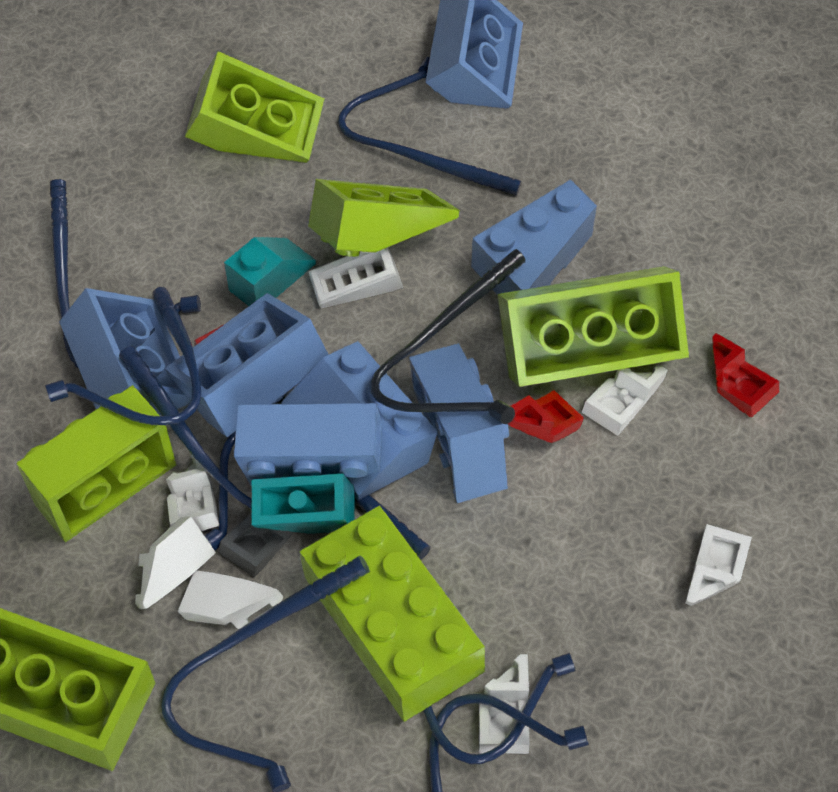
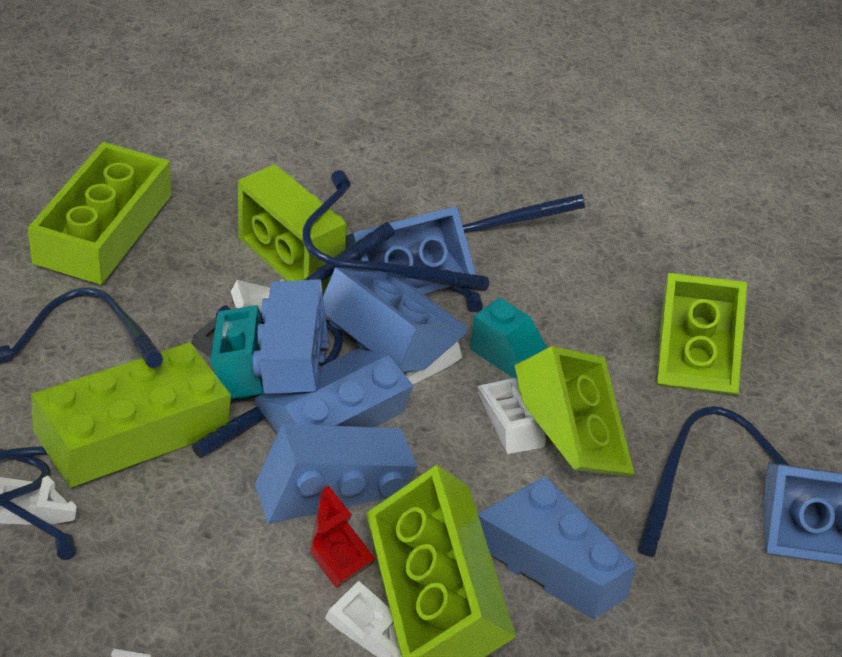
camera: 85 degrees right, 15 degrees down
(172, 560) = (205, 284): white slope -> none
(224, 599) = (166, 318): white slope -> none
(497, 409) = (470, 468): black piece -> none

